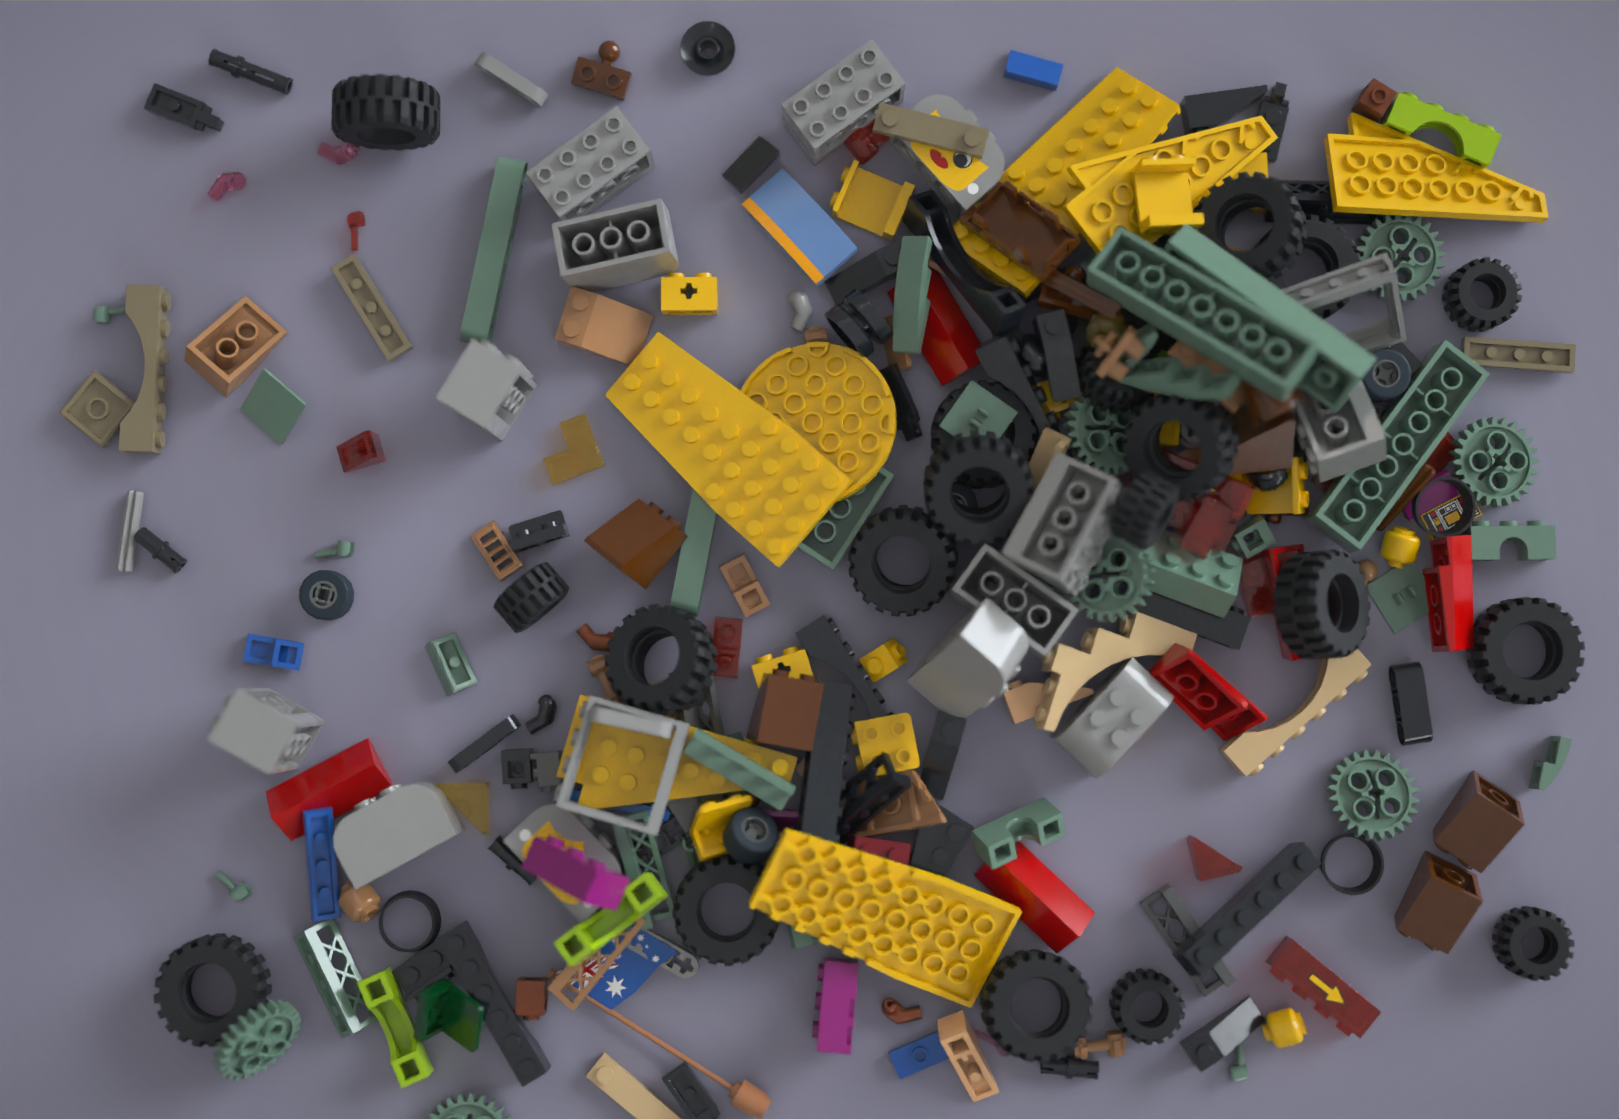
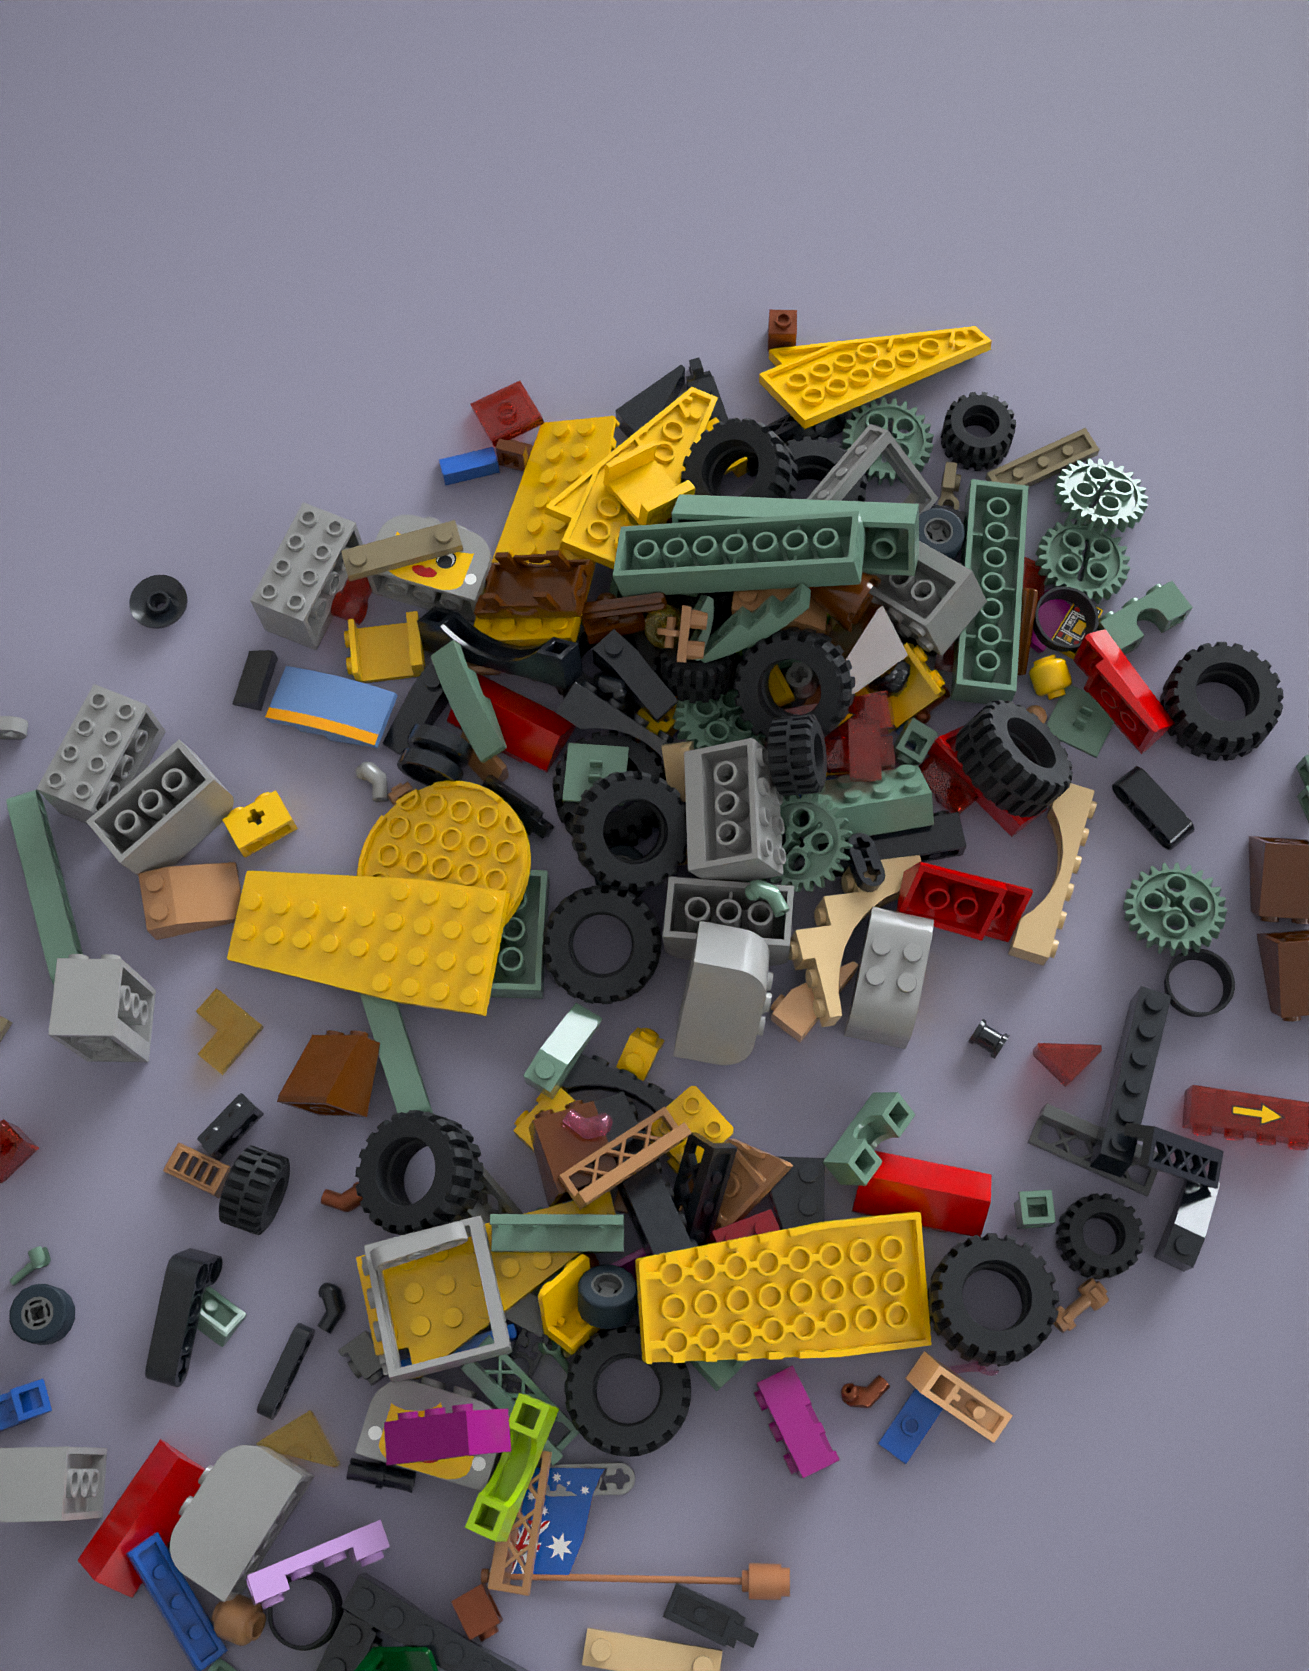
camera: 30 degrees left, 15 degrees down
(428, 655) = (179, 1314): none -> black beam
(475, 904) = (362, 1545): none -> lavender piece
(509, 759) = (321, 1371): black brick -> none
(598, 668) = (361, 1225): medium nougat bar -> none
(602, 76) = (71, 678): reddish brown plate -> none
(728, 642) = (476, 1119): clear red slope -> none
(744, 585) = (464, 1061): medium nougat slope -> none
(807, 704) = (588, 1127): none -> clear pink arm
(824, 753) = (633, 1163): none -> medium nougat fence
(825, 627) = (562, 1050): none -> sand green slope
(942, 753) = (749, 1105): black slope -> none
(1055, 604) = (768, 892): none -> sand green arm
(1071, 1068) = (1065, 1346): black pin -> none
(1077, 83) = (513, 454): none -> reddish brown bracket
(1092, 41) = (507, 413): none -> clear red plate
(1110, 959) = (1034, 1209): none -> sand green brick
(1149, 618) = (868, 861): none -> black beam
(1159, 808) = (988, 1038): none -> black bush
(1239, 1072) = (1229, 1247): sand green hand -> none
(1250, 986) = (1184, 1151): none -> black fence
(1284, 1027) = (1242, 1177): yellow head -> none
(1427, 327) = (949, 483): none -> dark tan plate
(1470, 140) = (880, 317): lime arch -> none
(1557, 433) = (1117, 507): none -> sand green gear

